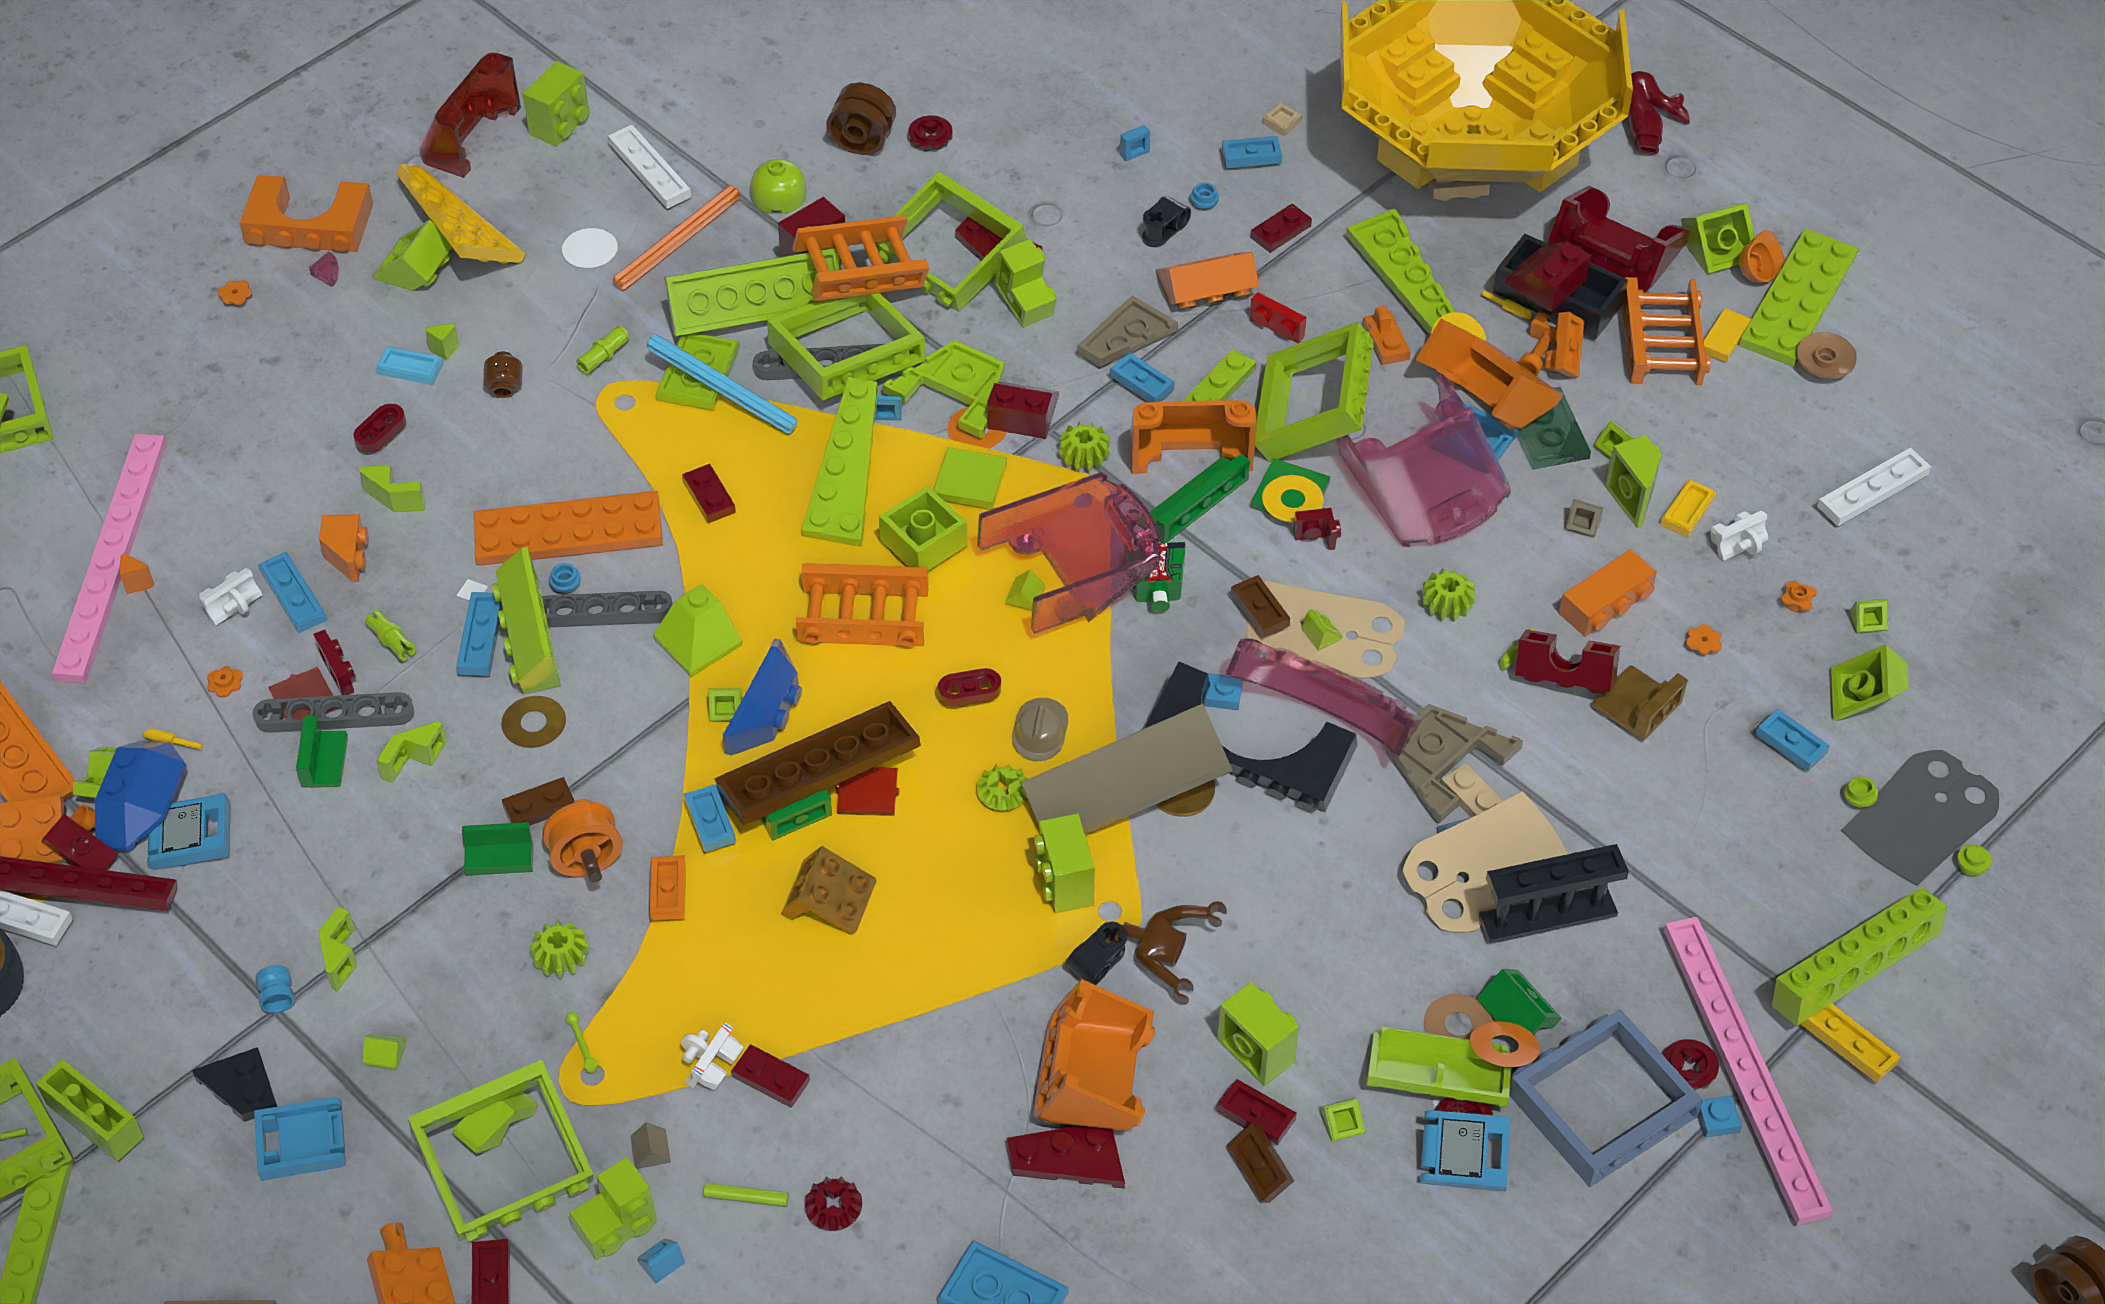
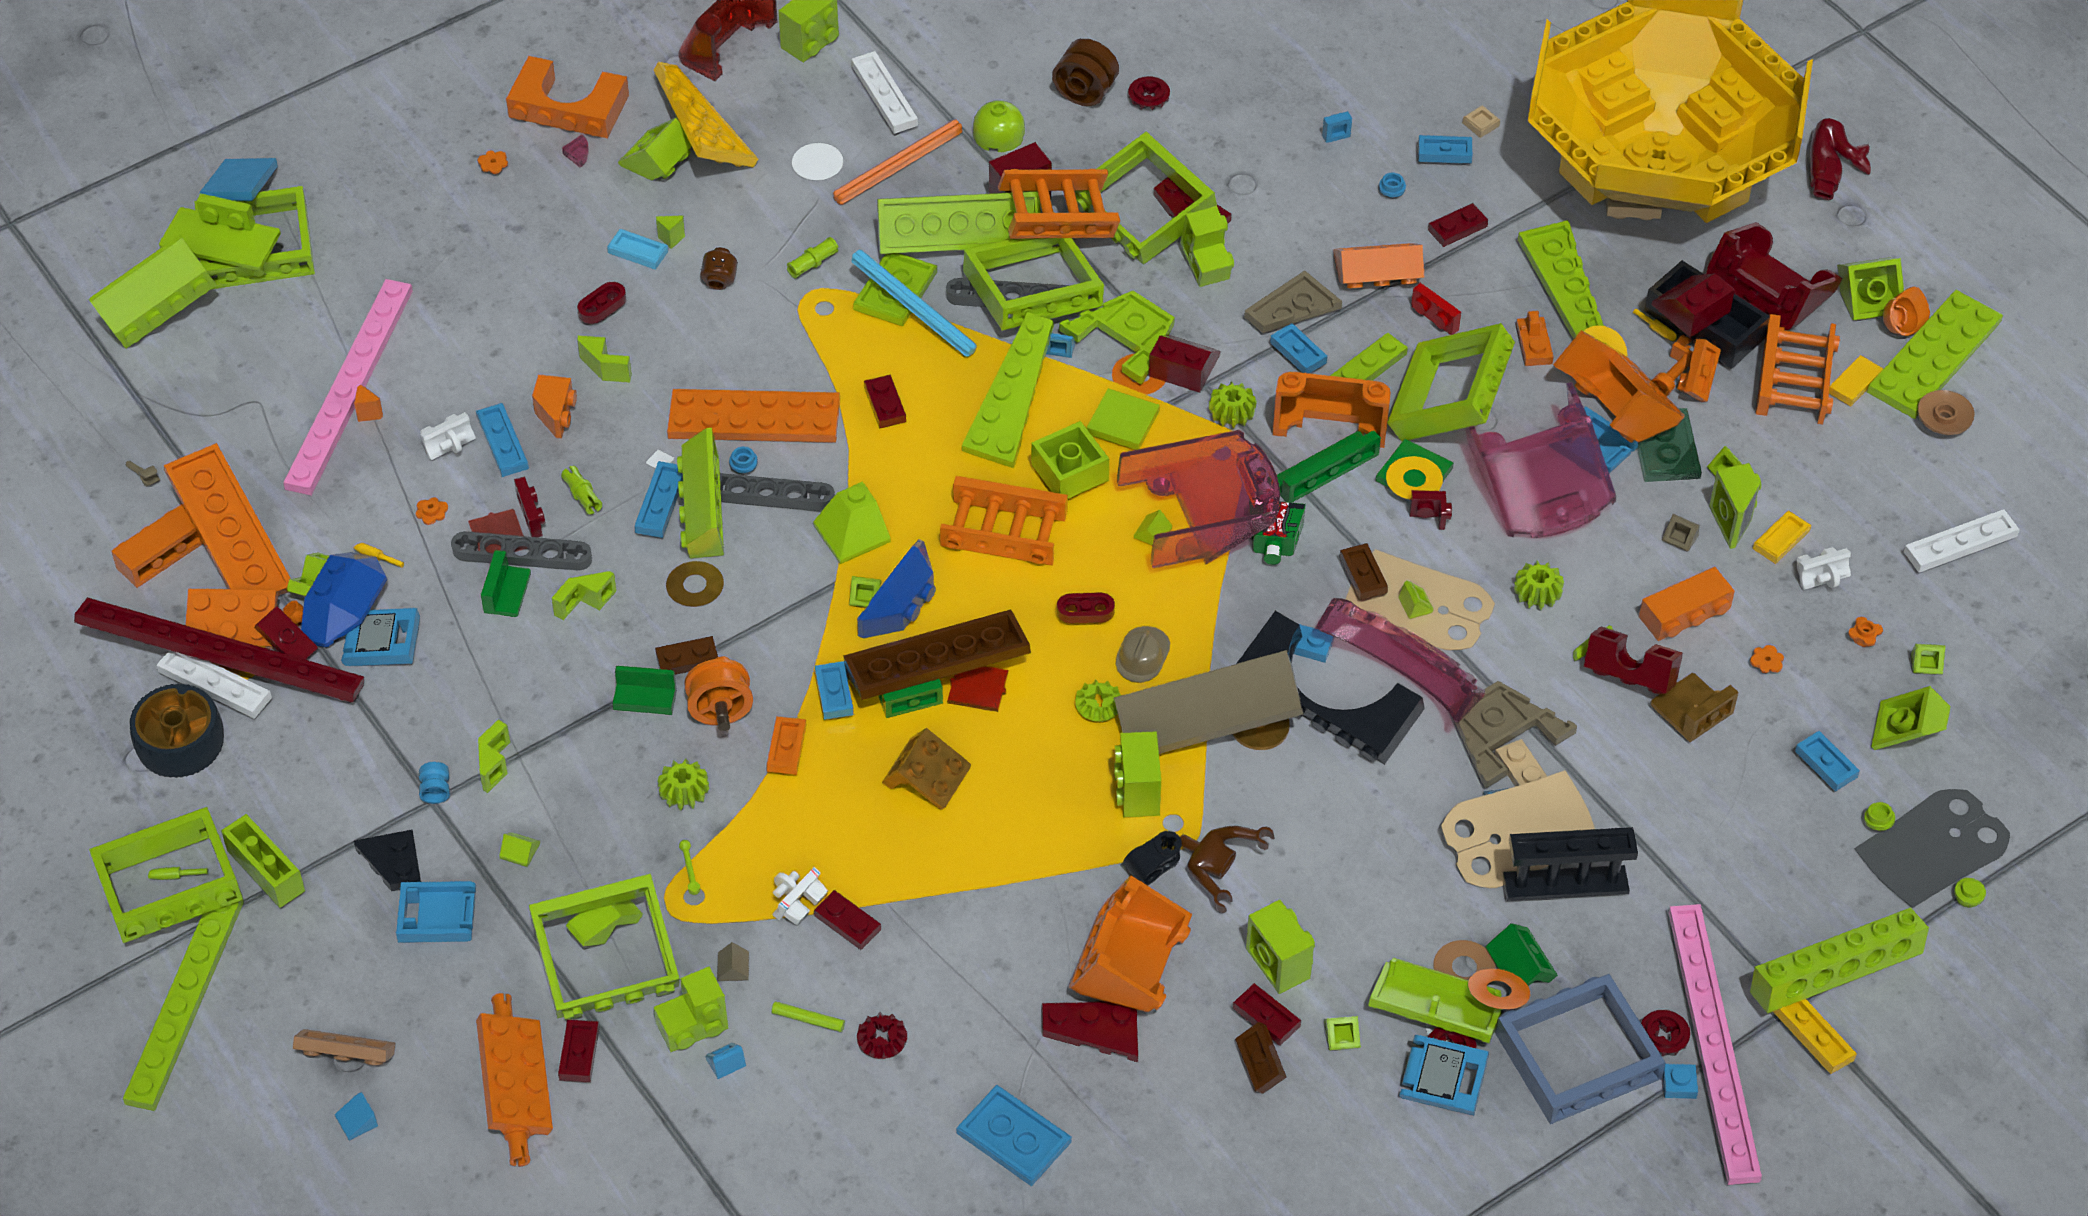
camera: 10 degrees right, 0 degrees up
(1164, 221) = (1349, 204): black piece -> none

